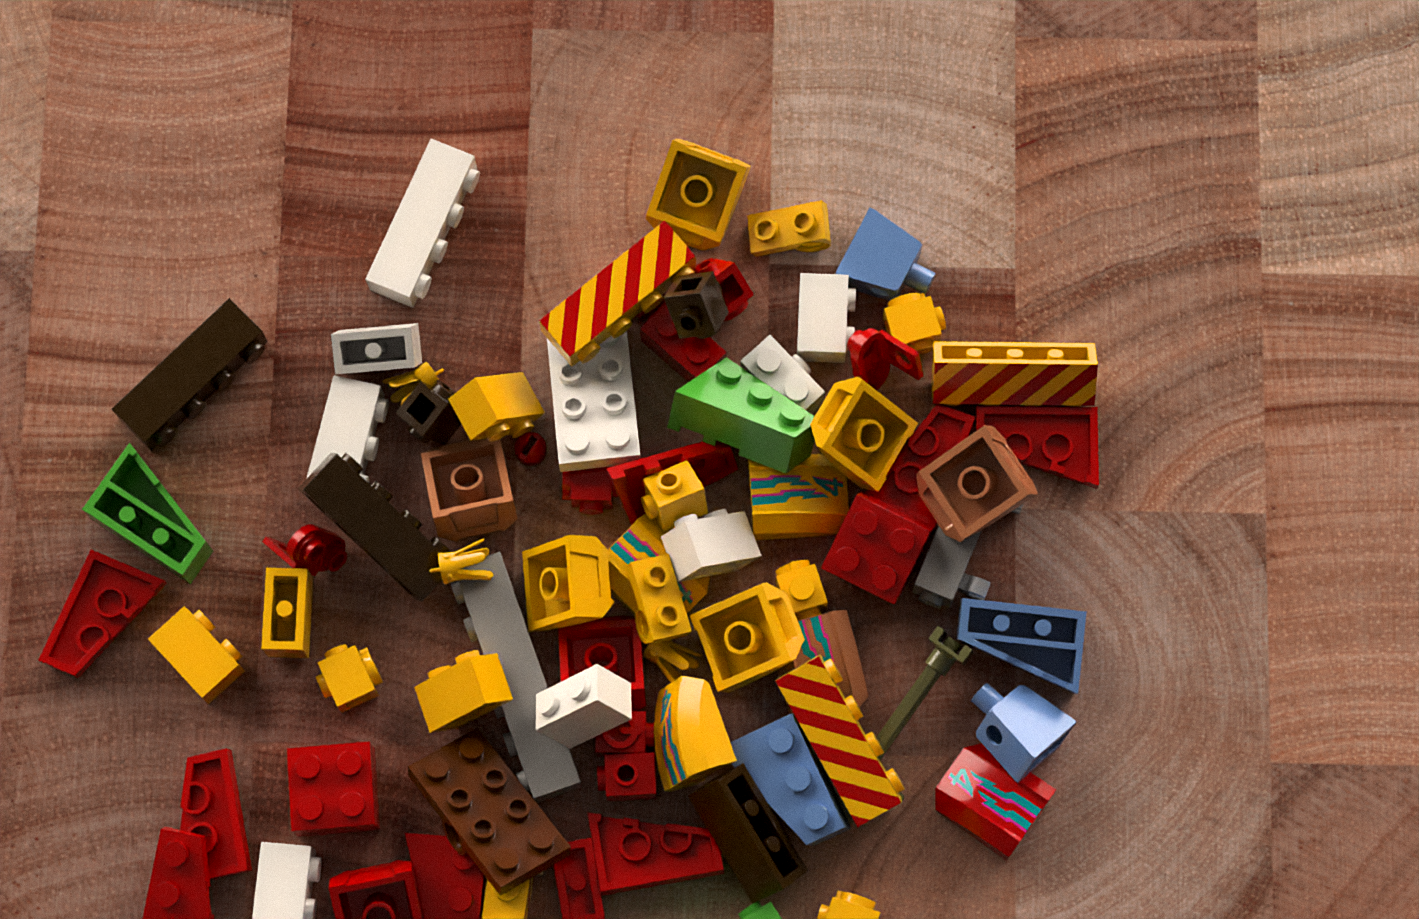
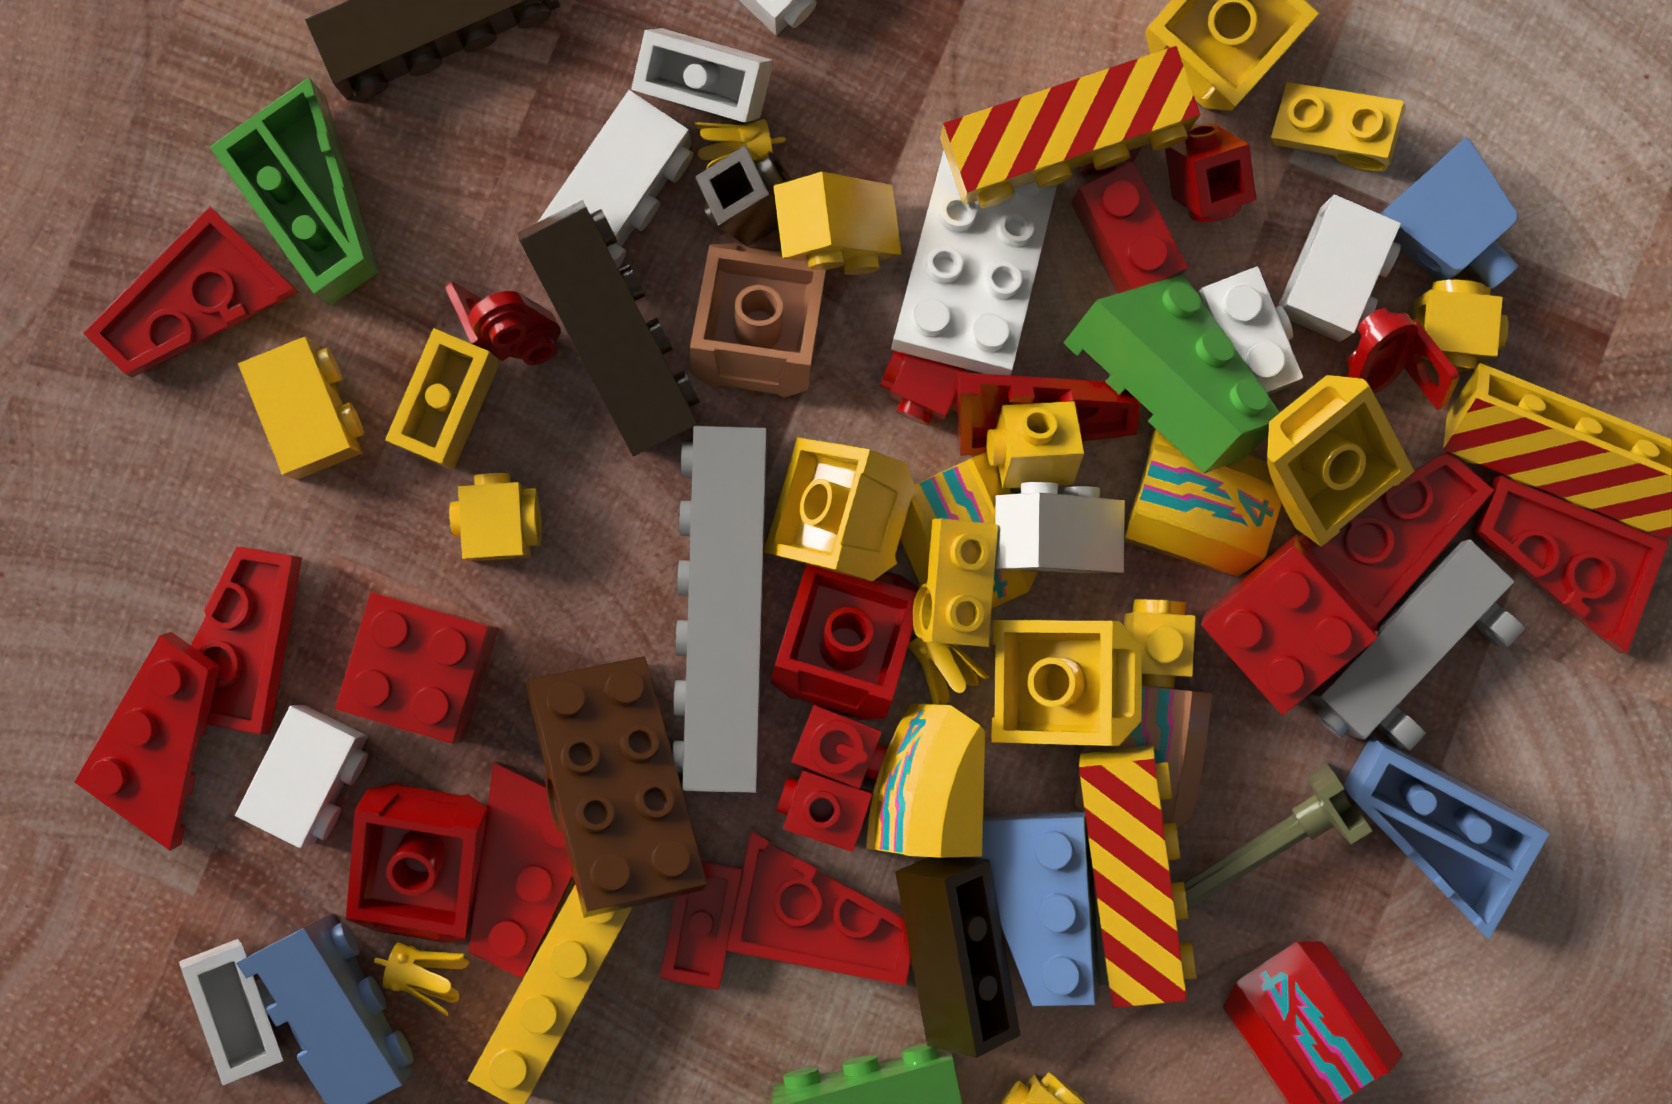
camera: 15 degrees right, 10 degrees up
(452, 563) = (699, 426): yellow piece -> none
(463, 691) = (642, 604): yellow brick -> none
(536, 453) = (869, 306): red hinge -> none
(583, 706) = (798, 698): white brick -> none
(696, 305) = (1174, 186): dark brown brick -> none
(974, 484) = (1462, 595): nougat slope -> none
(1020, 728) = (1387, 953): medium blue torso -> none

